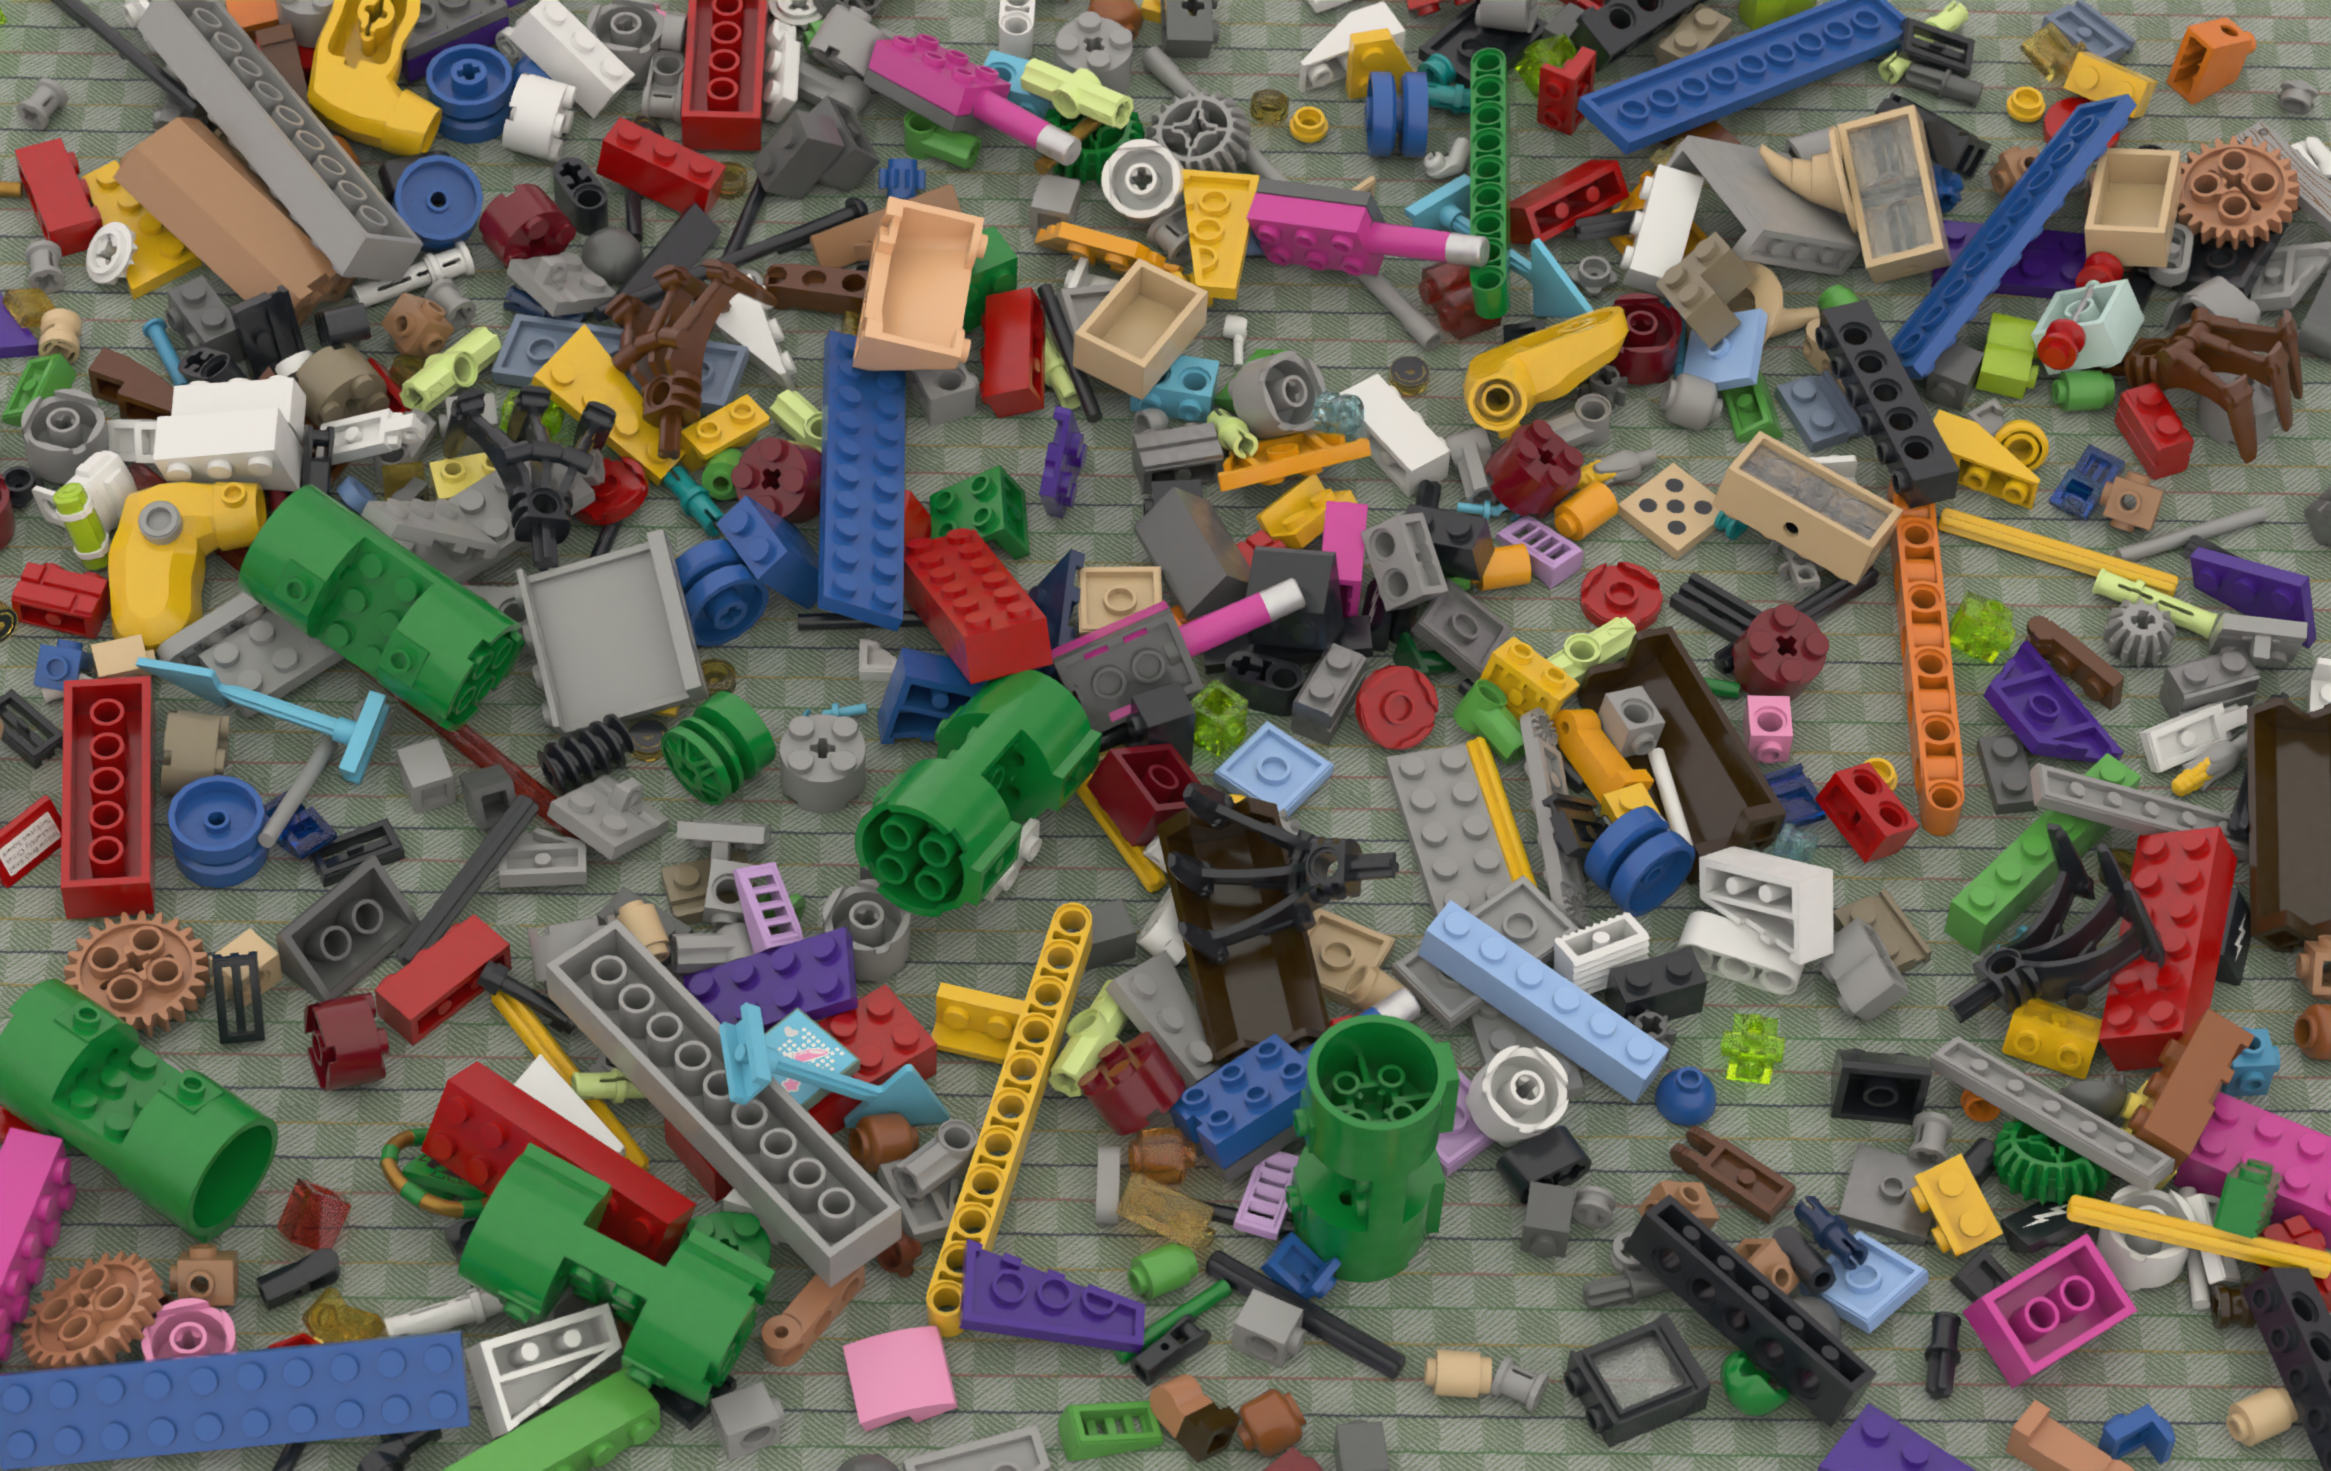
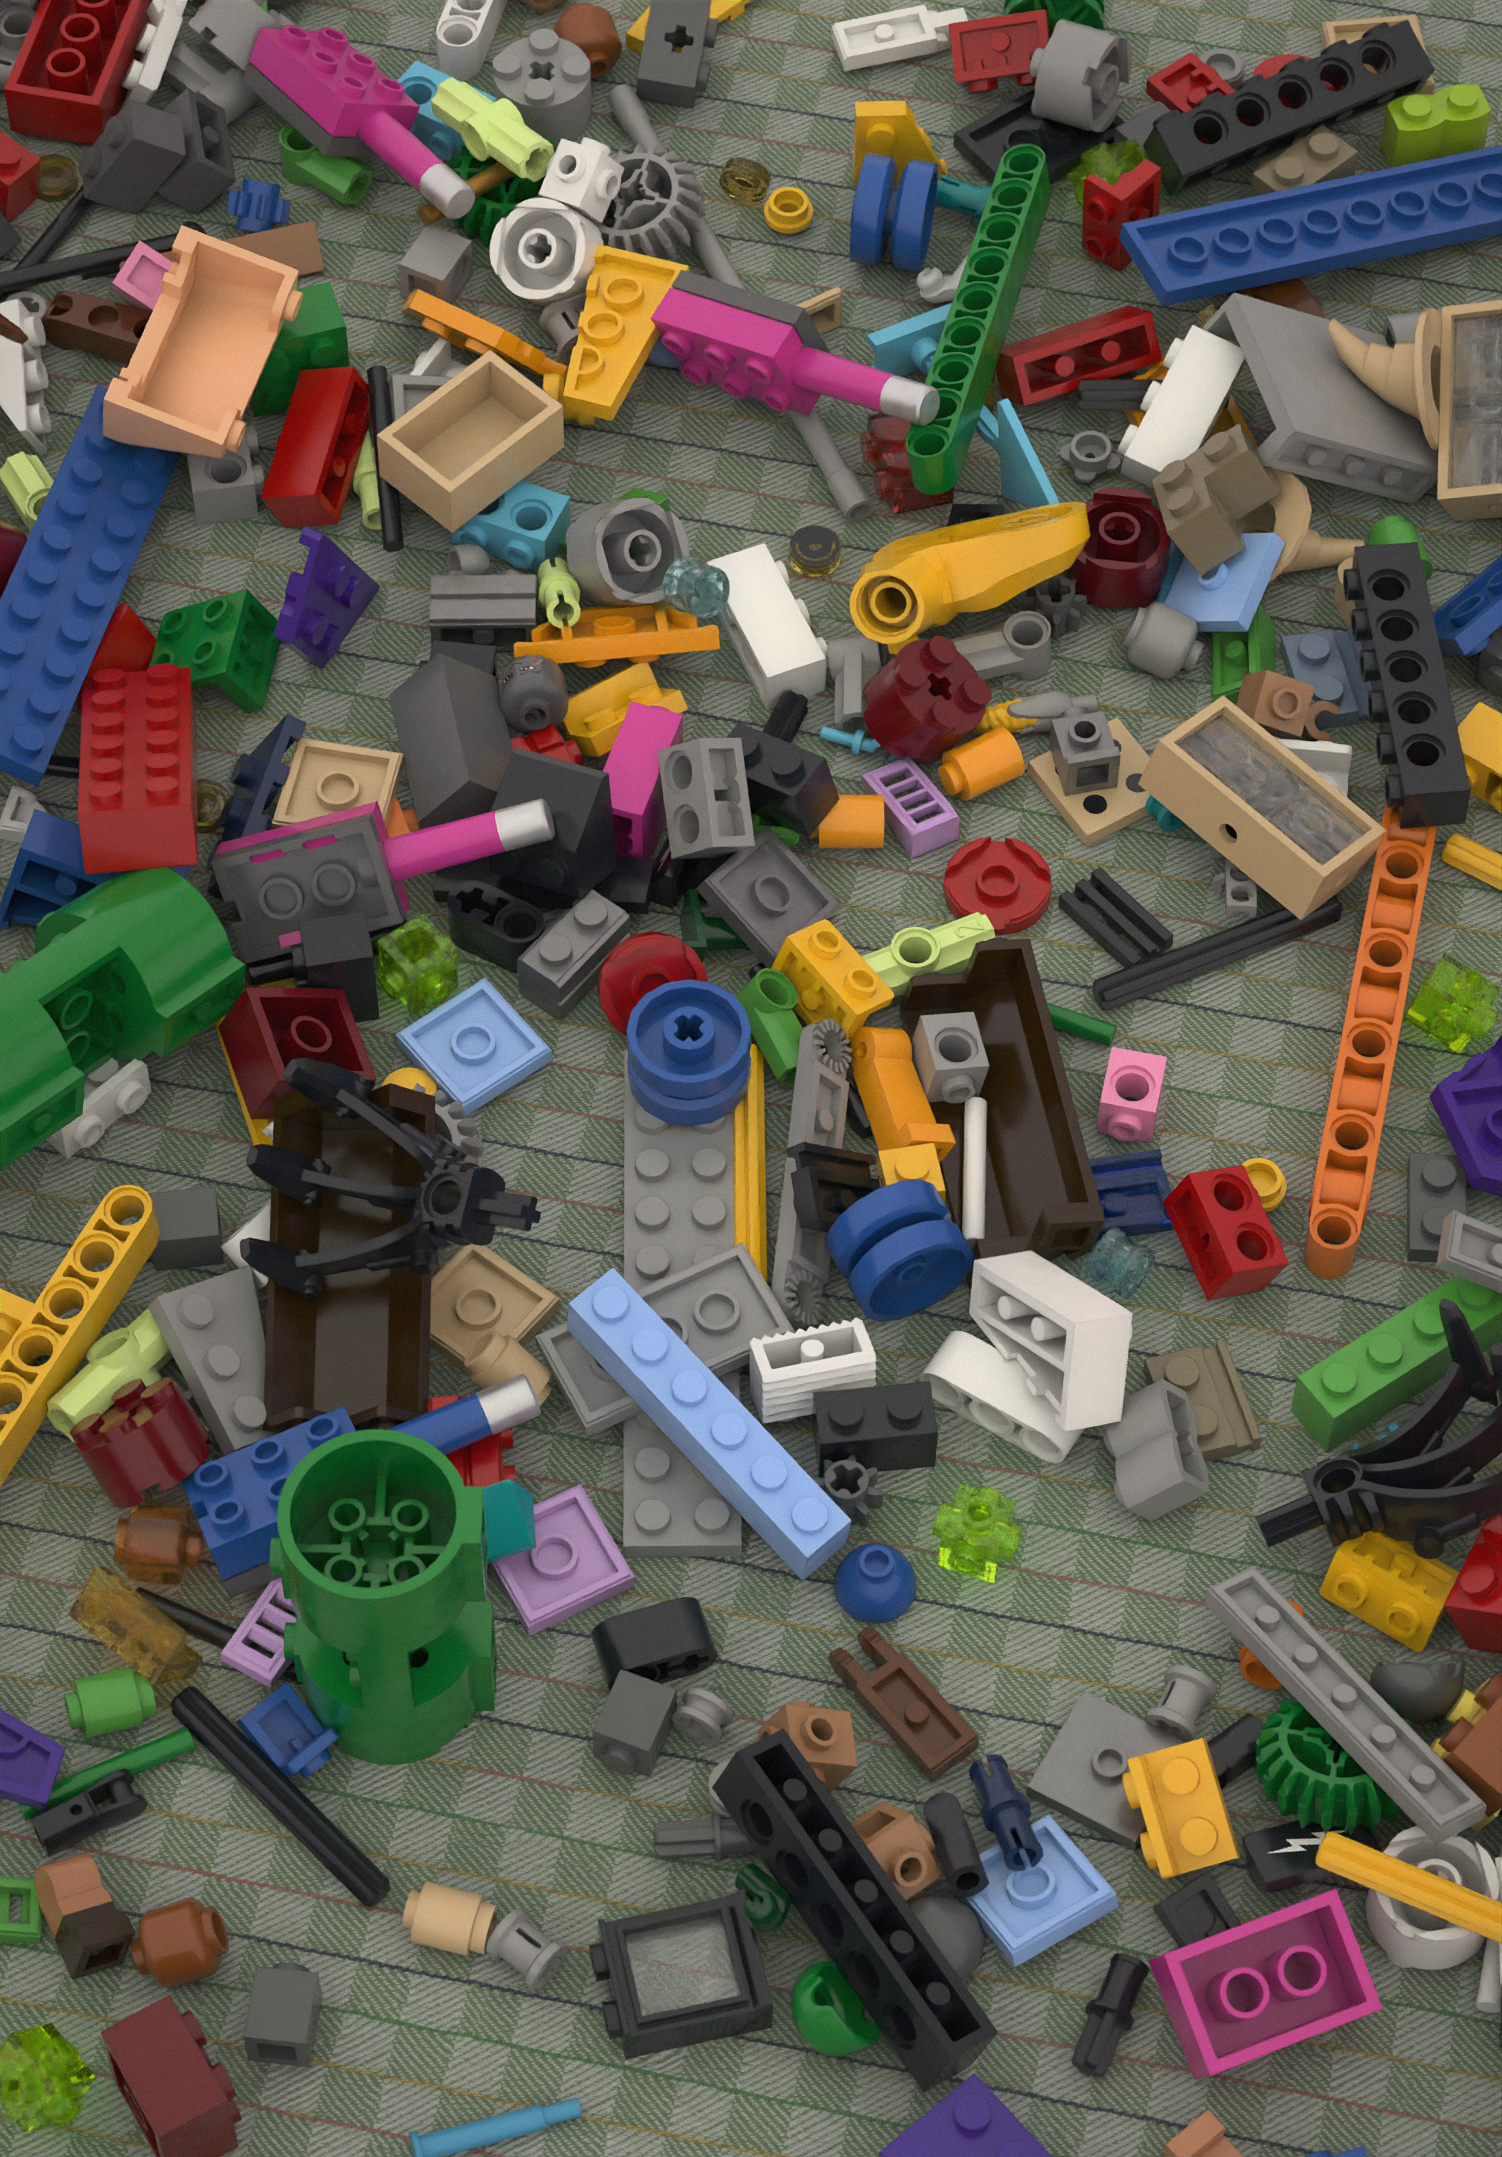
camera: 15 degrees right, 5 degrees up
(840, 244) = (141, 277): none -> bright pink brick
(1107, 1185) = (83, 1552): light grey beam -> none
(1159, 119) = (583, 177): none -> white brick
(1236, 329) = (614, 458): white hand -> none
(1242, 508) = (532, 693): none -> dark grey head
(1268, 1329) = (220, 1809): light grey brick -> none
(1330, 57) = (831, 132): white slope -> none
(1438, 69) = (969, 165): teal bush -> none
(1444, 747) = (689, 1052): none -> blue wheel
(1505, 1114) = (638, 1513): white brick -> none
(1659, 481) = (1083, 741): none -> flat silver brick
(1687, 1319) = (766, 1900): none -> dark green arm
(1779, 653) = (1176, 968): dark red brick -> none
(1798, 431) = (1283, 705): none -> medium nougat brick
(1878, 1086) = (1130, 1614): black slope -> none

